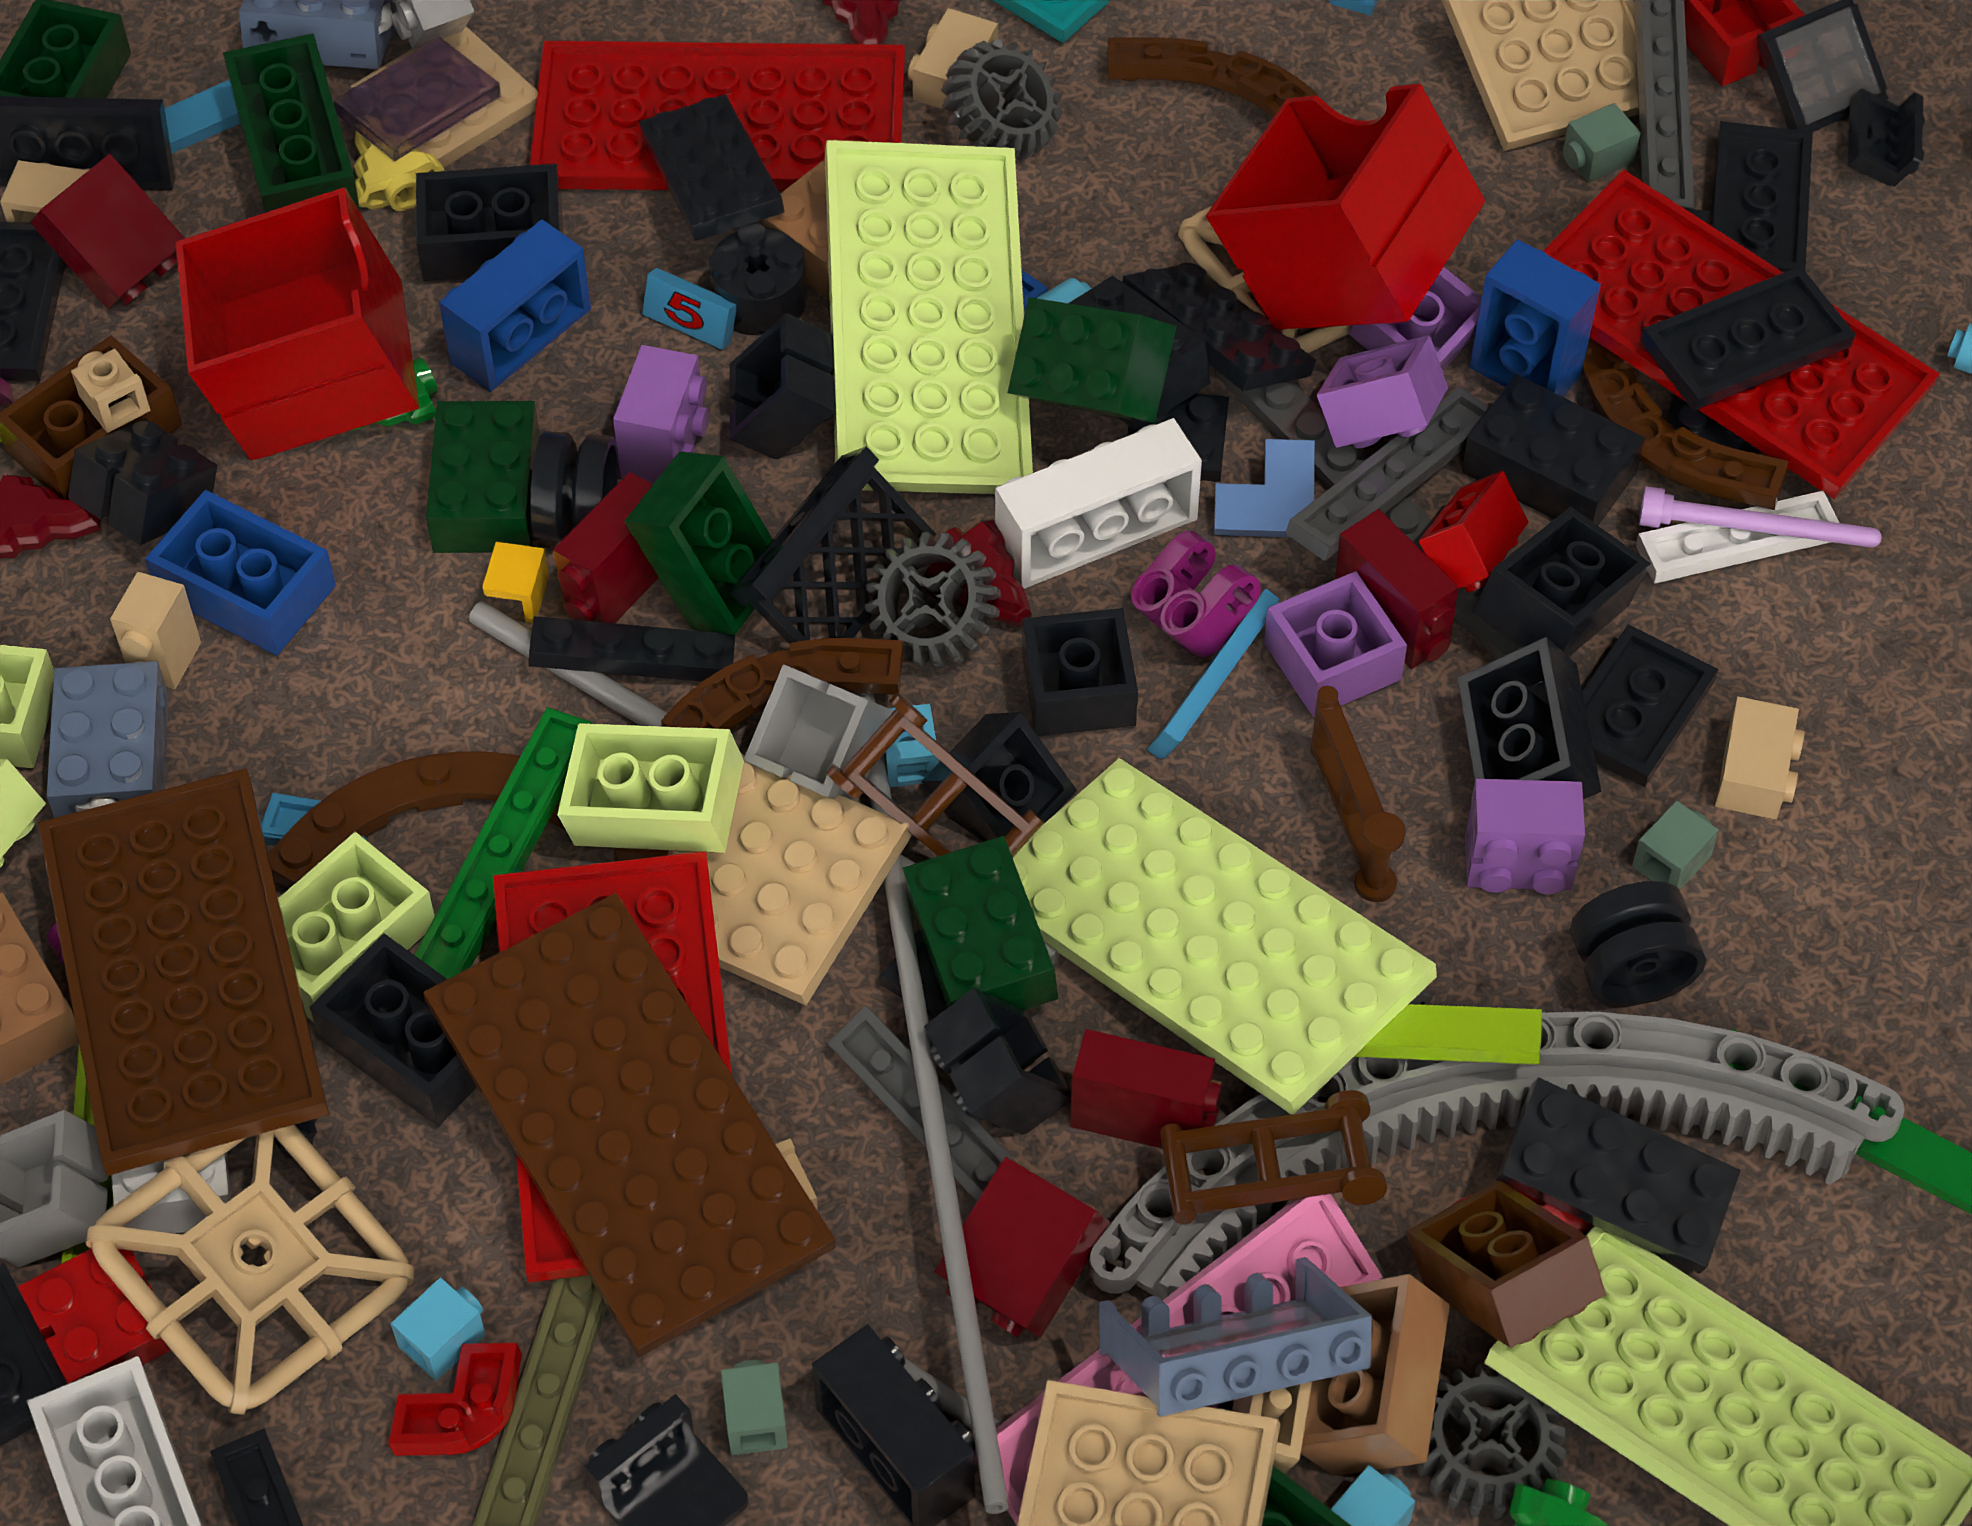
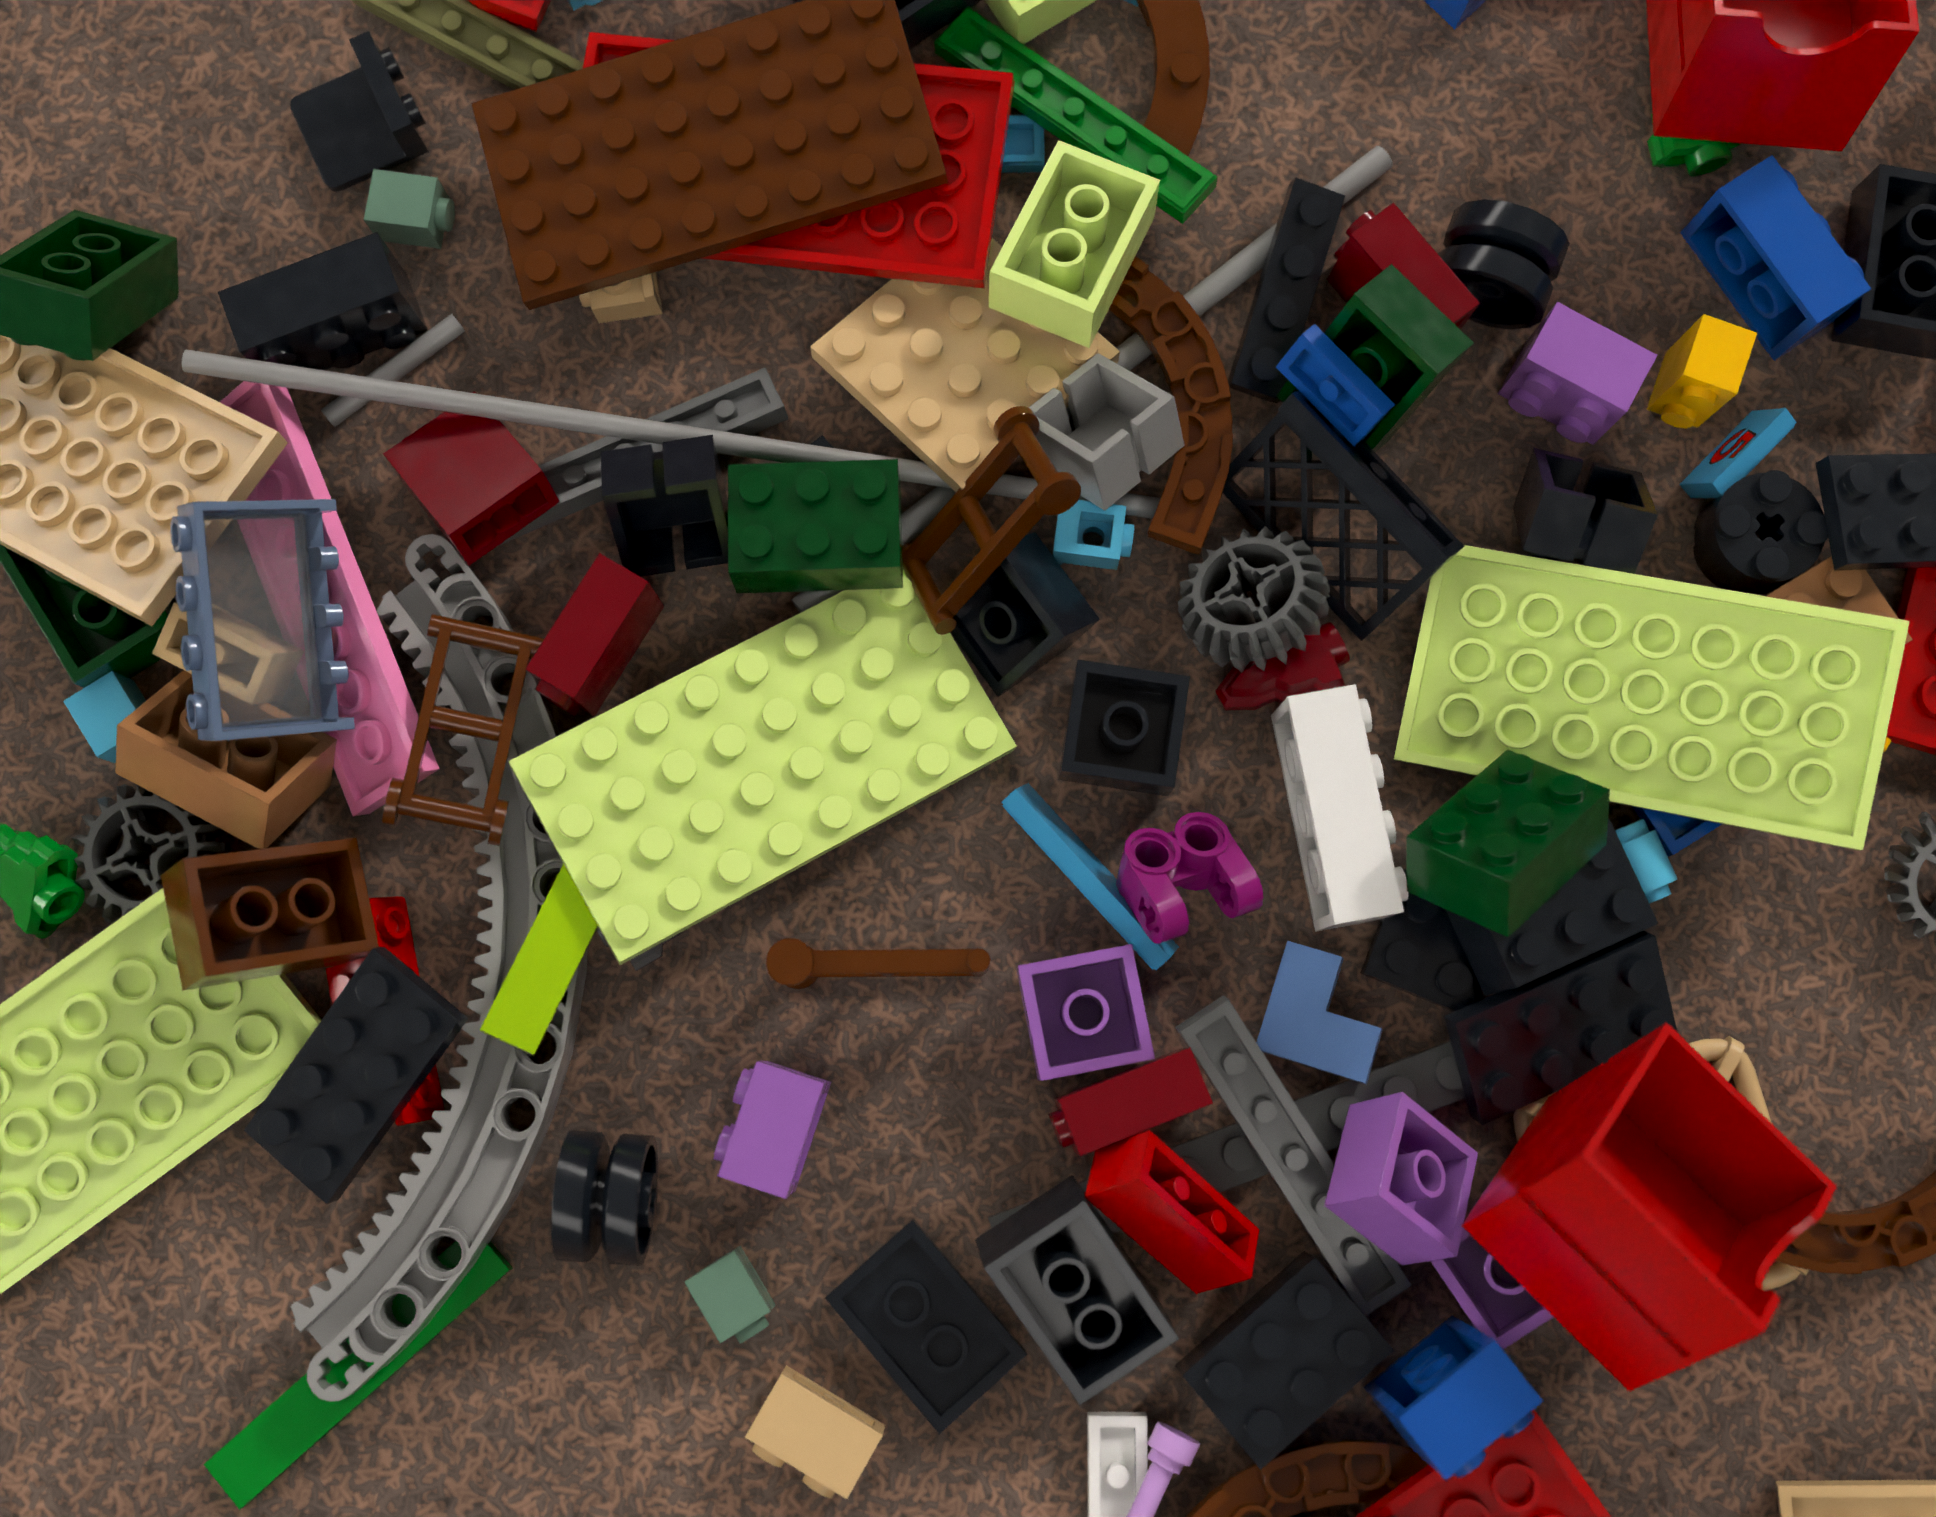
camera: 105 degrees right, 25 degrees up
(481, 475) = (1565, 173): dark green brick -> none
(519, 575) = (1408, 184): yellow panel -> none
(625, 322) = (1701, 372): none -> yellow brick
(737, 553) = (1334, 385): none -> blue plate
(1529, 719) = (897, 1179): black brick -> none

